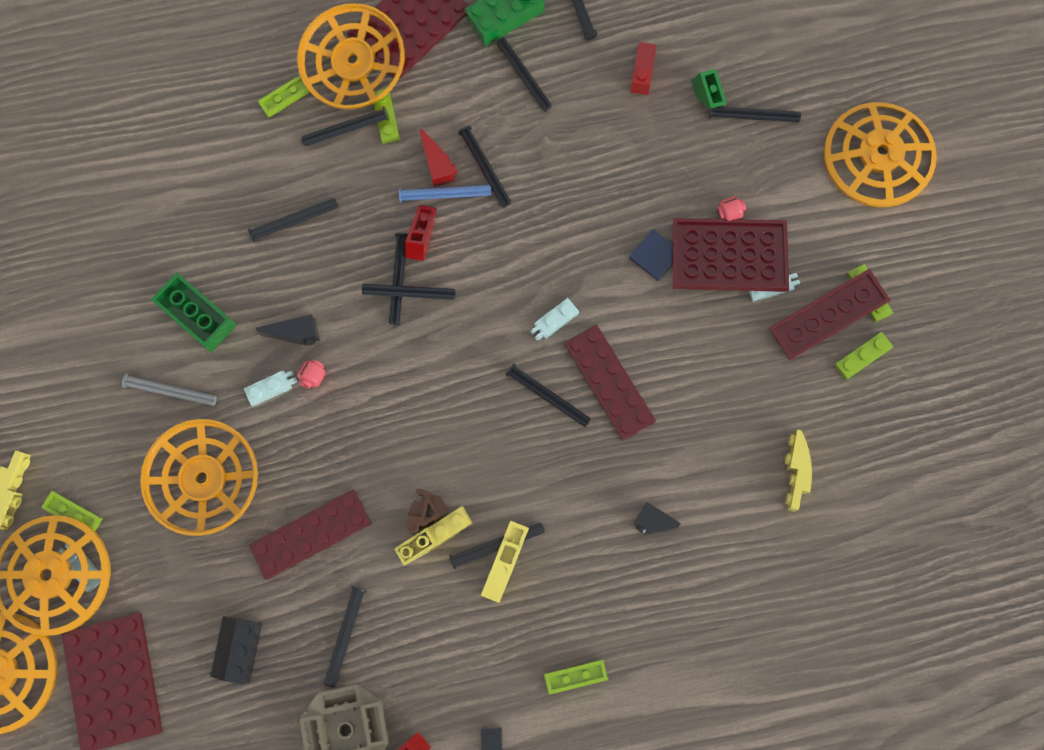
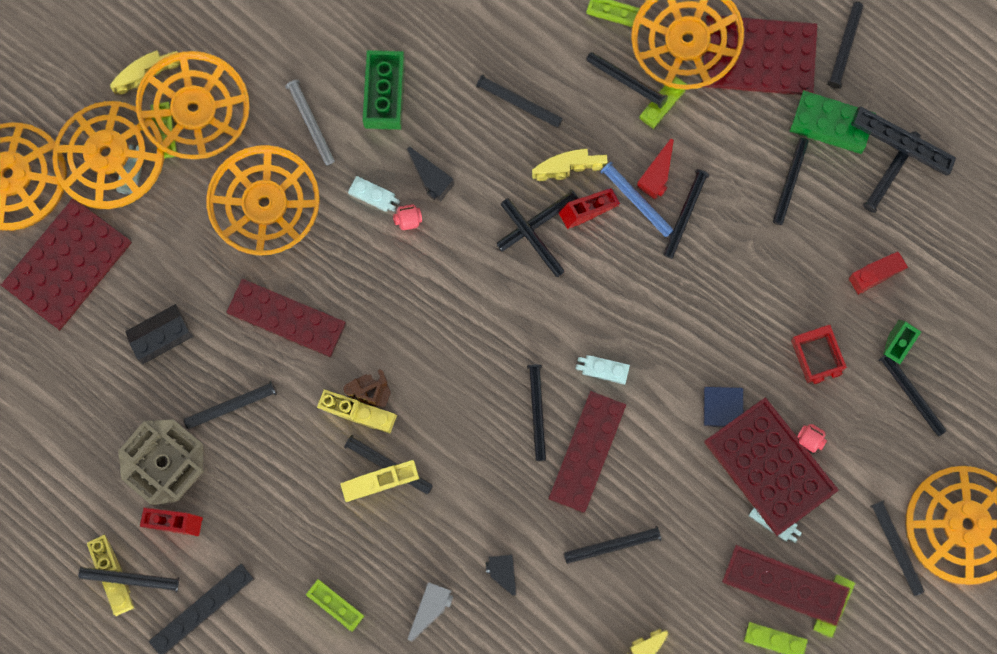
camera: 50 degrees right, 0 degrees up
(63, 466) = (192, 95): none -> light orange dish
(370, 225) = (560, 165): none -> light yellow slope
(637, 597) = (431, 607): none -> light grey slope
(677, 141) = (813, 335): none -> red window
(698, 419) = (612, 545): none -> black axle
(861, 213) = (898, 548): none -> black axle

